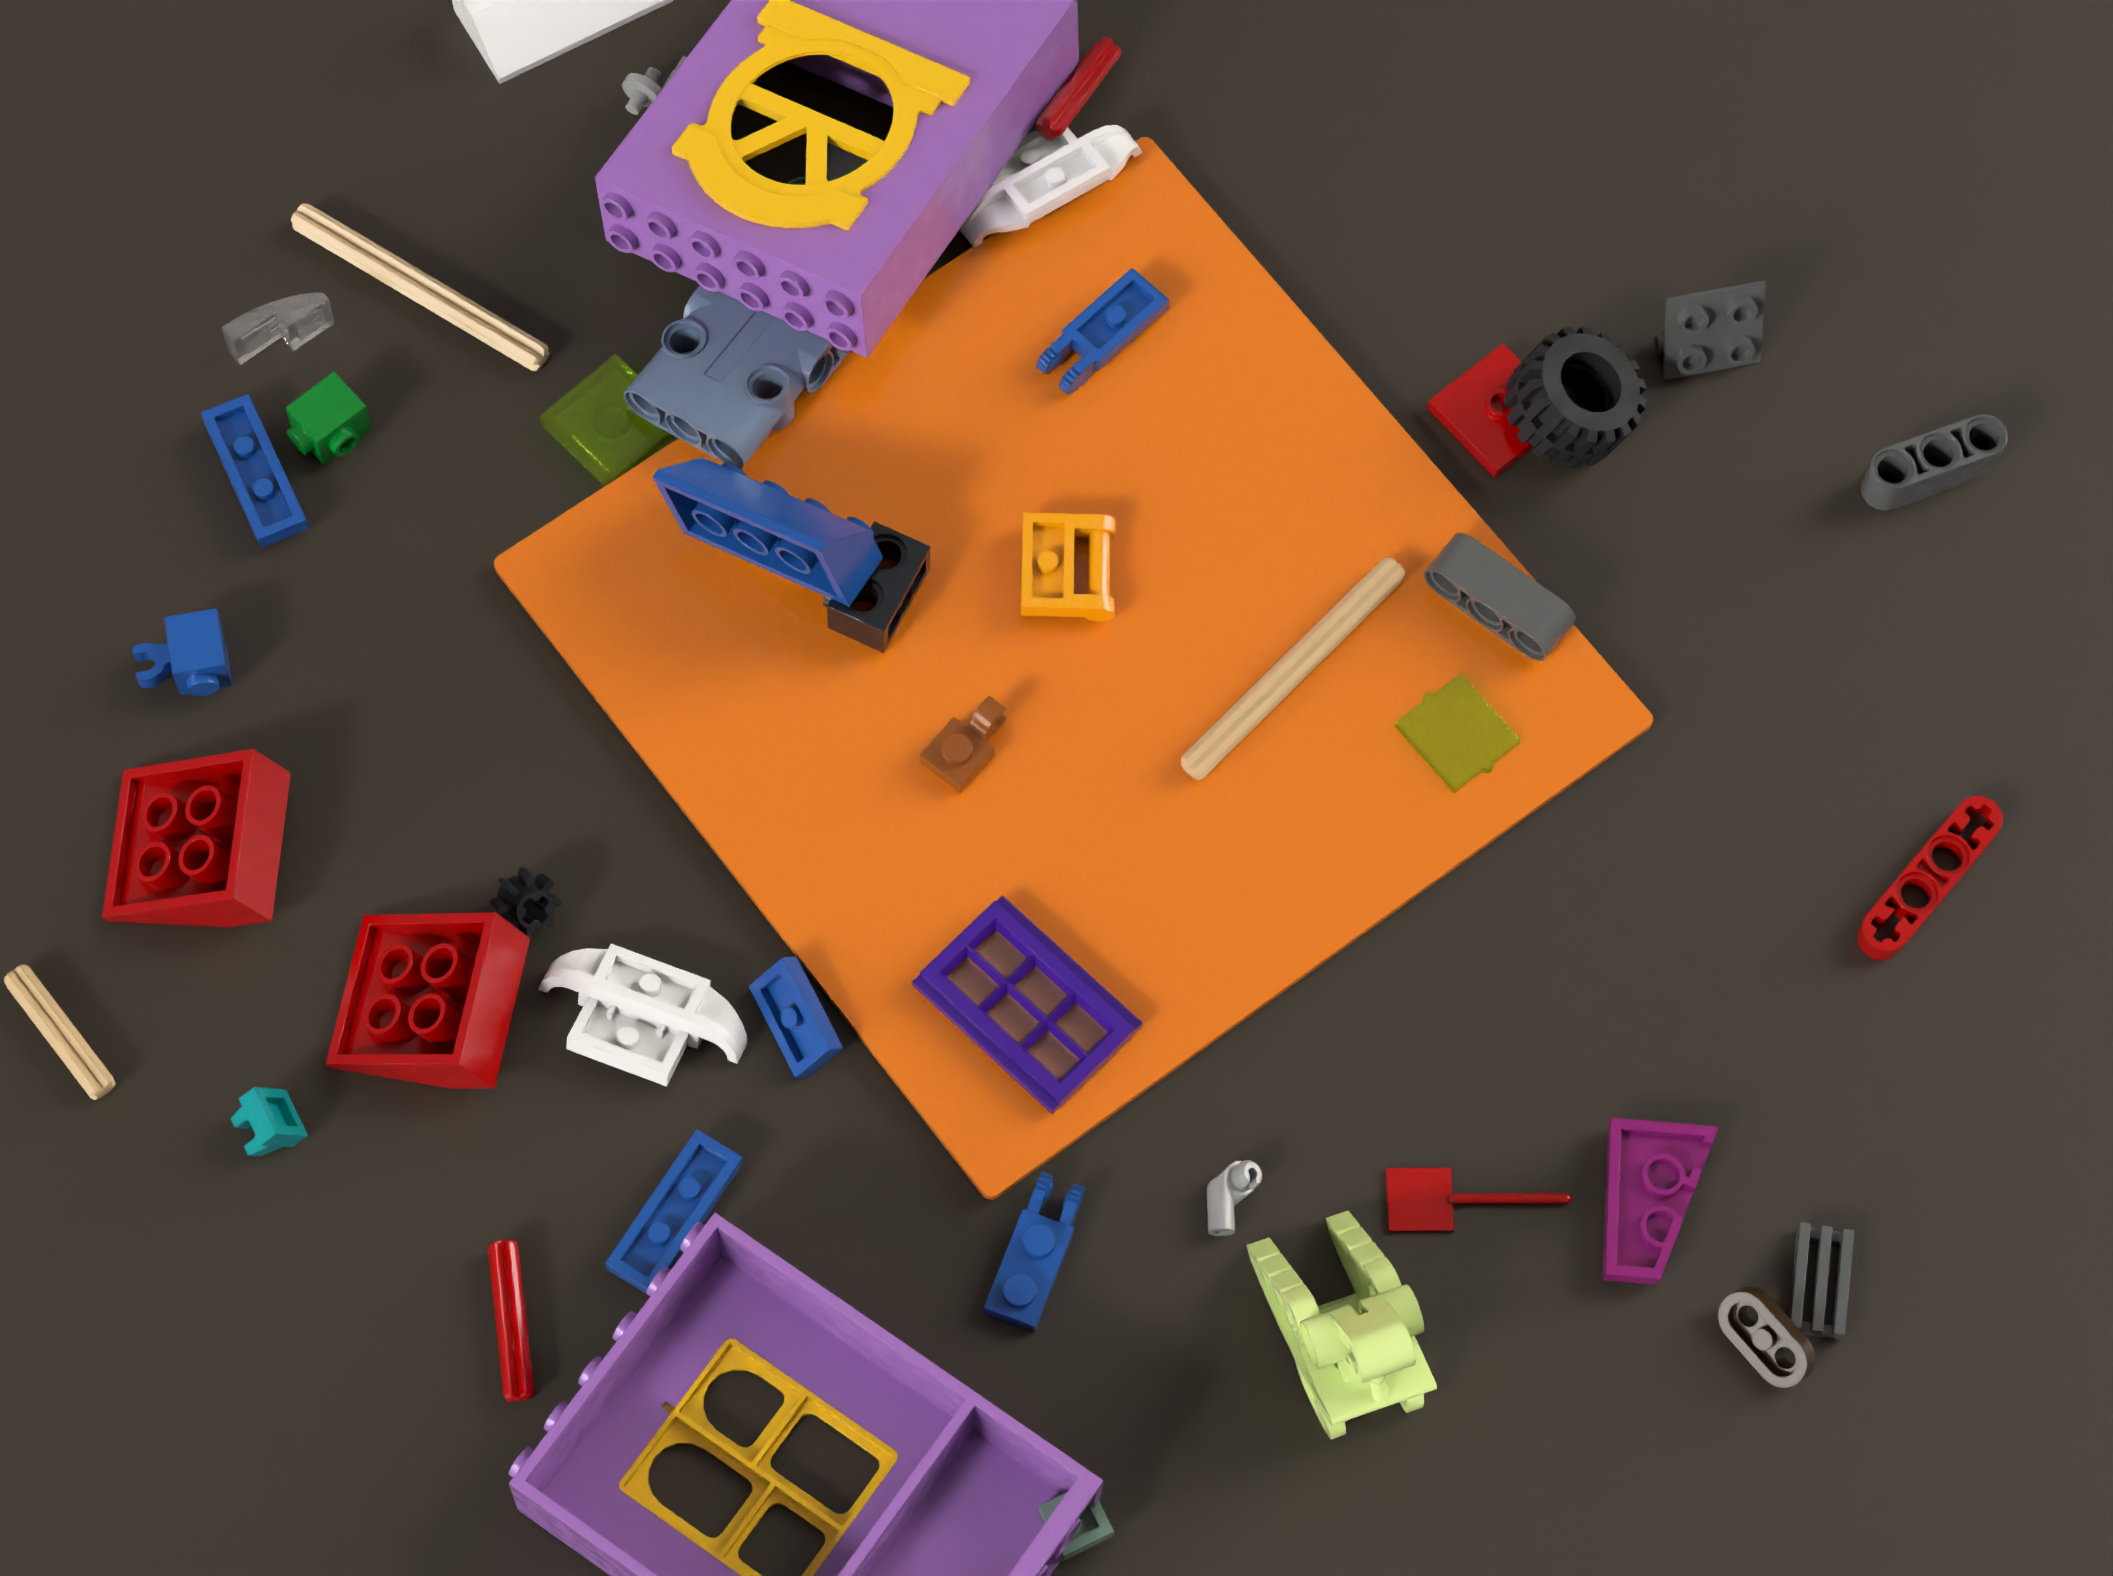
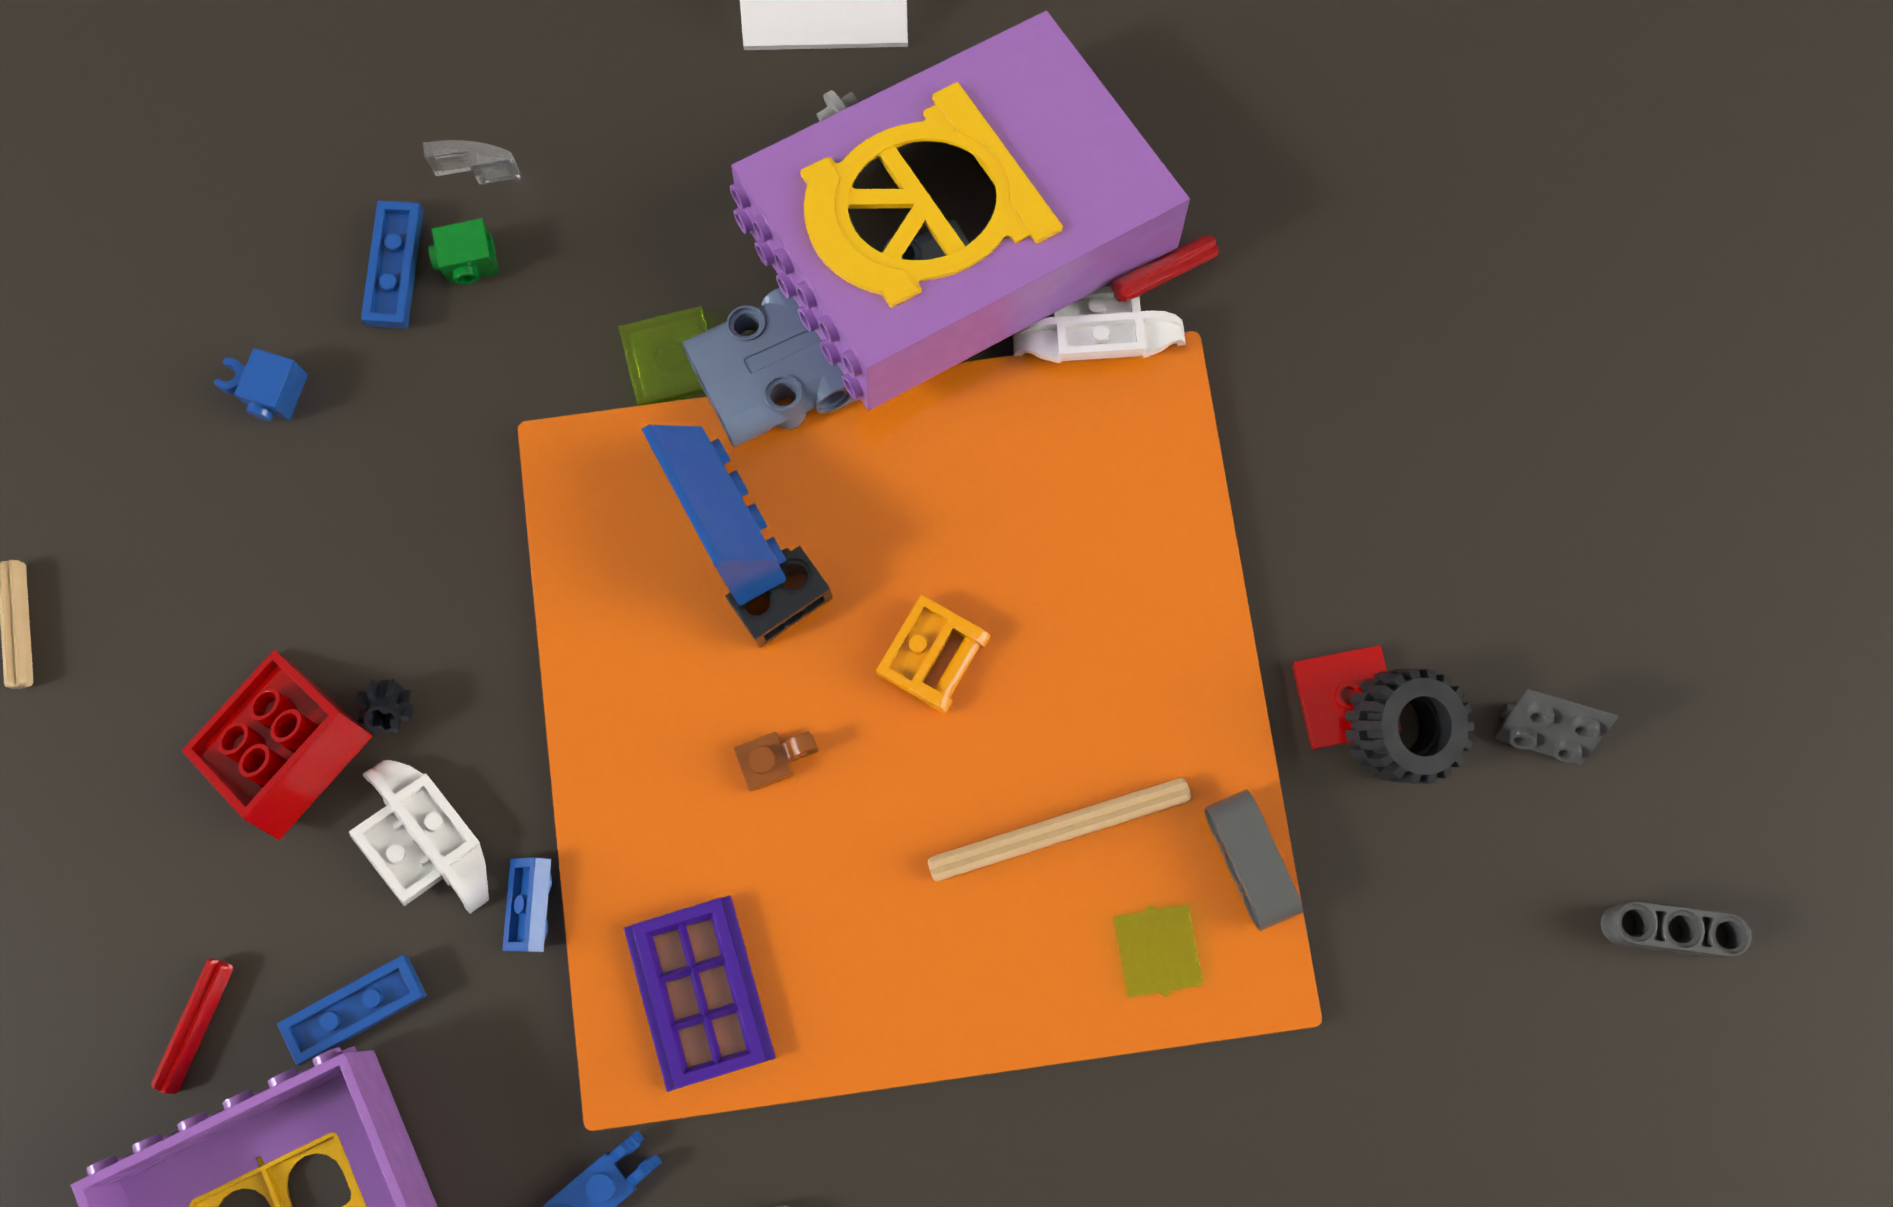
camera: 35 degrees right, 10 degrees up
(198, 842) = (188, 533): red slope -> none
(271, 1118) = (114, 774): teal tile -> none
(420, 287) = (593, 181): tan axle -> none
(1104, 328) = (1072, 475): blue hinge -> none

